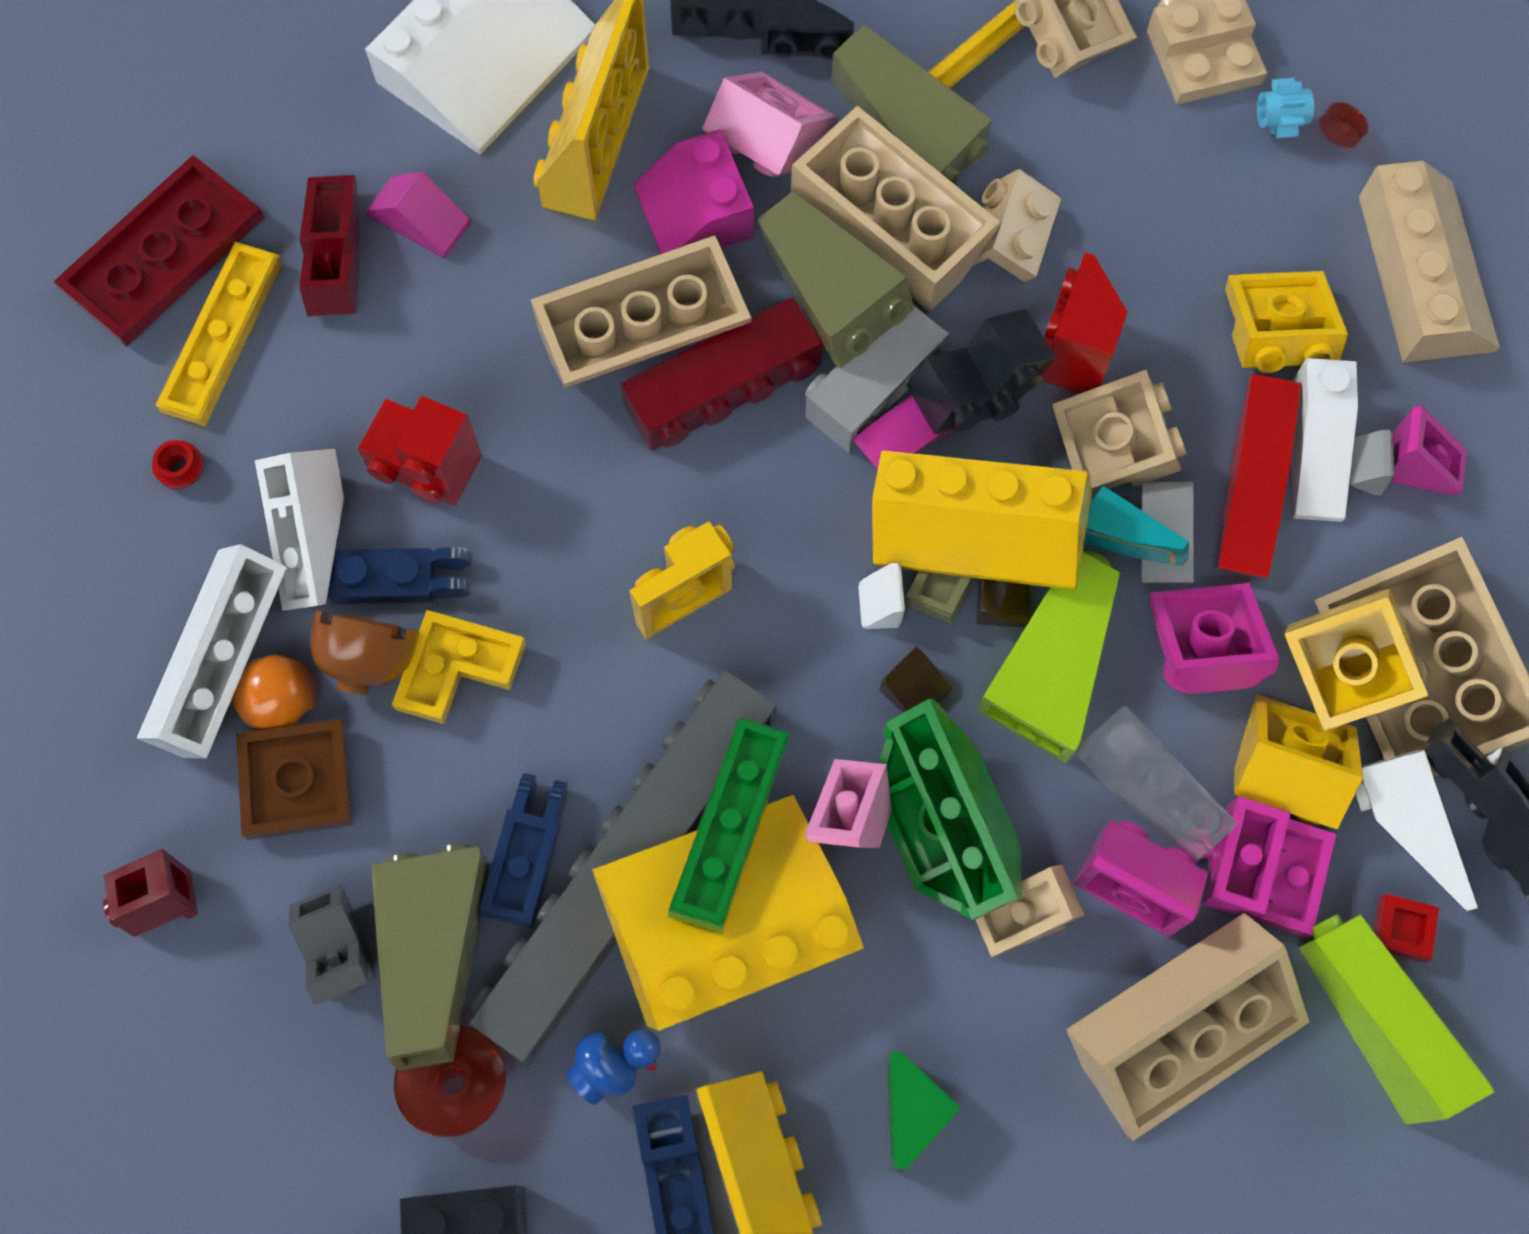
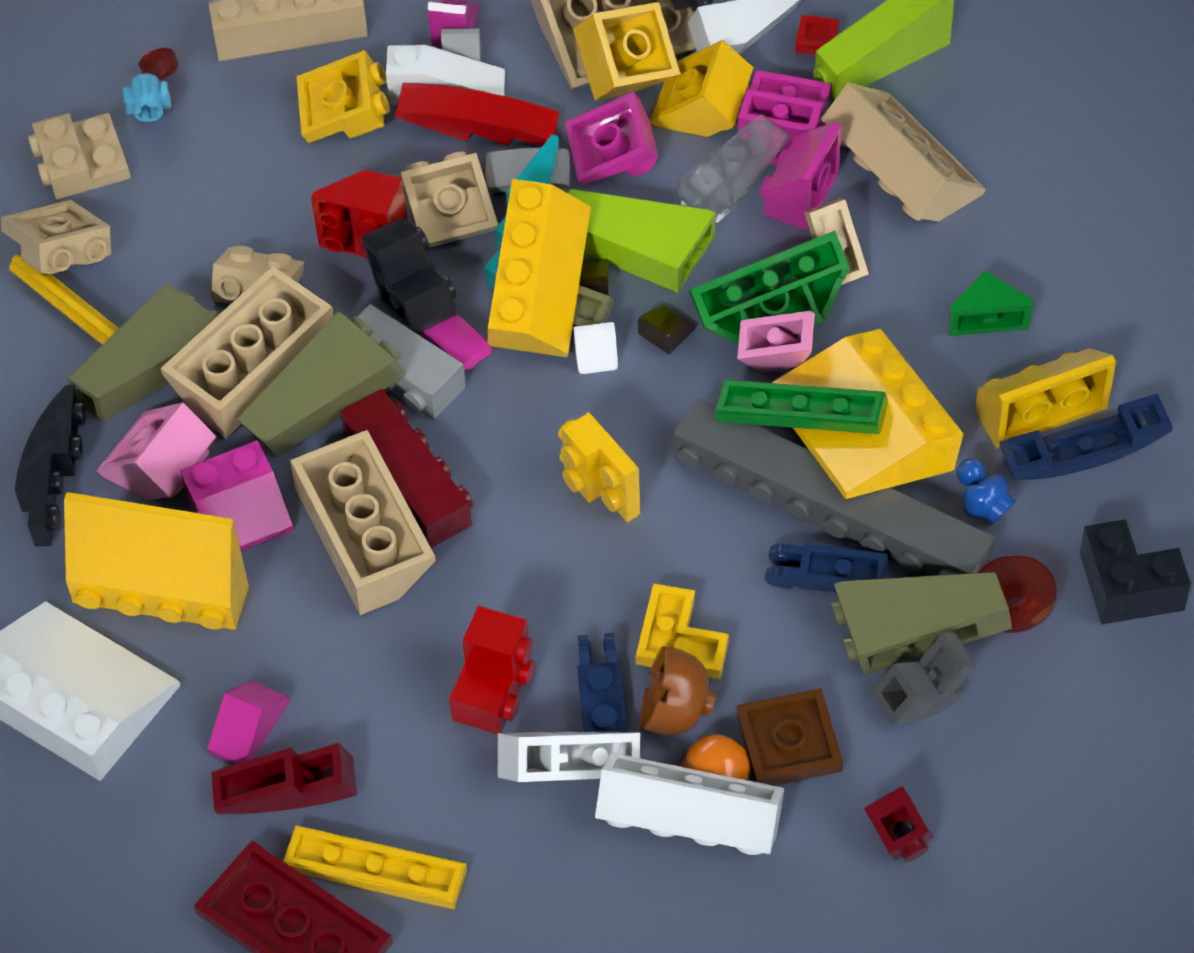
camera: 90 degrees left, 15 degrees down
(171, 453) = (506, 866): red plate -> none

